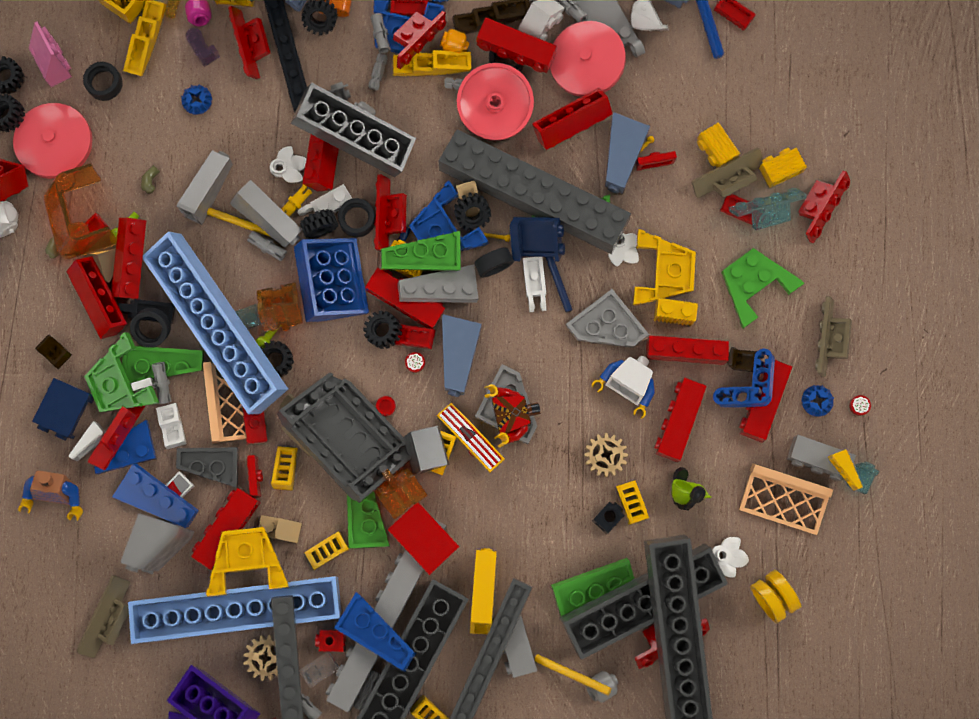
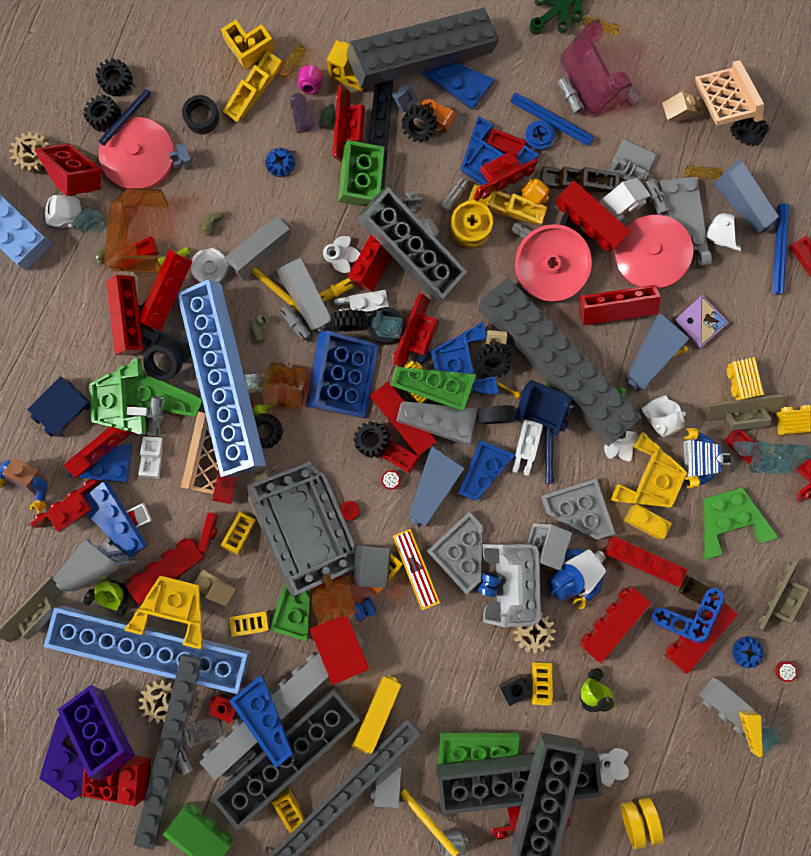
camera: 20 degrees right, 5 degrees up
(25, 219) = (86, 220): none -> clear light blue bracket
(28, 109) = (124, 117): none -> dark blue bar
(48, 56) = (159, 74): bright pink slope -> none
(53, 351) = (70, 351): dark brown bracket -> none
(88, 441) = (71, 445): white slope -> none
(100, 126) = (182, 155): none -> sand blue tile
(108, 504) = (68, 511): none -> red bracket
(163, 219) = (209, 265): none -> white tile
(178, 573) = (109, 595): none -> lime cap
(211, 463) = (176, 506): dark grey wing -> none
(227, 41) = (327, 117): none -> clear green slope
(231, 263) = (257, 327): none -> olive arm
(279, 82) = (360, 172): none -> bright green slope
(358, 216) = (387, 326): none -> clear light blue bracket
(380, 33) = (470, 159): light grey pin -> none
(403, 93) = (471, 213): none -> yellow wheel
(431, 499) = (361, 613): none -> blue wheel
(501, 318) = (483, 469): none -> blue wing
(511, 413) = (461, 563): torso -> none
(547, 421) = (489, 584): none -> blue wheel
(570, 412) = (520, 585): none -> light grey windscreen
(588, 368) = (551, 544): none -> light grey slope
(618, 395) = (566, 582): none -> blue piece
(654, 207) = (664, 416): none -> white helmet
(656, 108) = (700, 321): none -> tile
(656, 160) = (682, 371): red plate -> none
(704, 233) = (702, 458): none -> torso
(791, 482) = (698, 723): light nougat fence -> none

